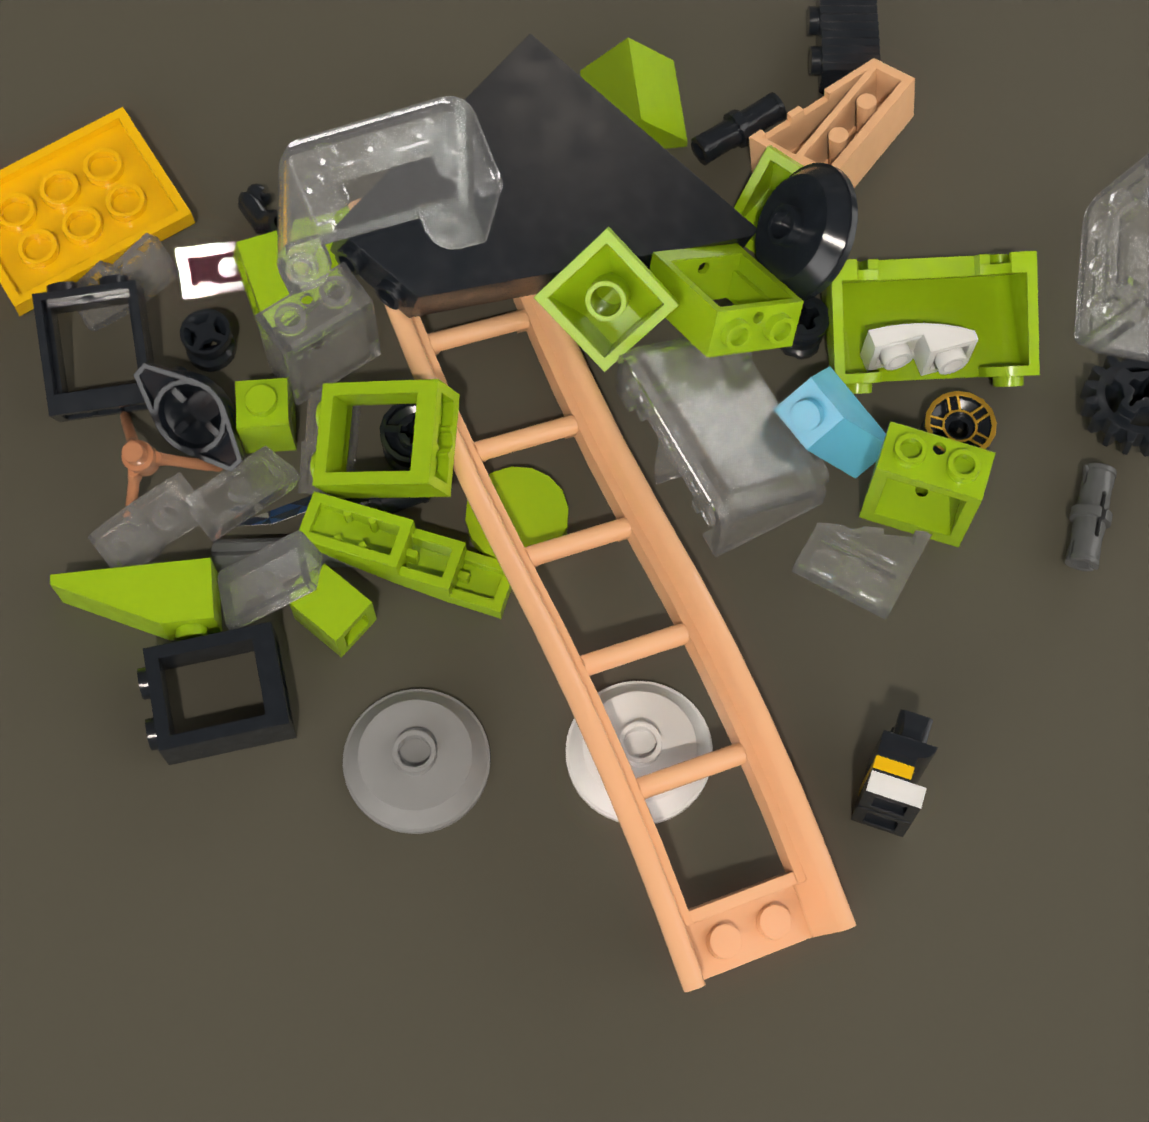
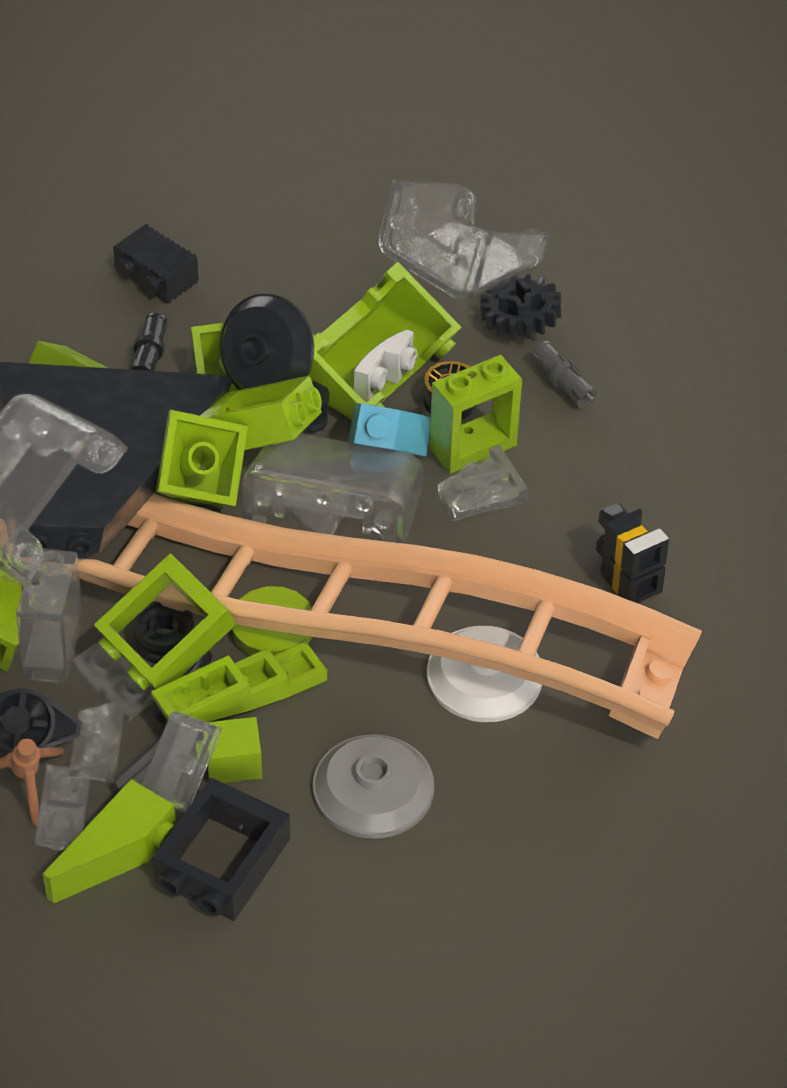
camera: 50 degrees left, 20 degrees down
(265, 415) = (65, 684): lime brick -> none
(279, 514) = (136, 732): sticker -> none
(846, 125) = (208, 295): light nougat wedge -> none

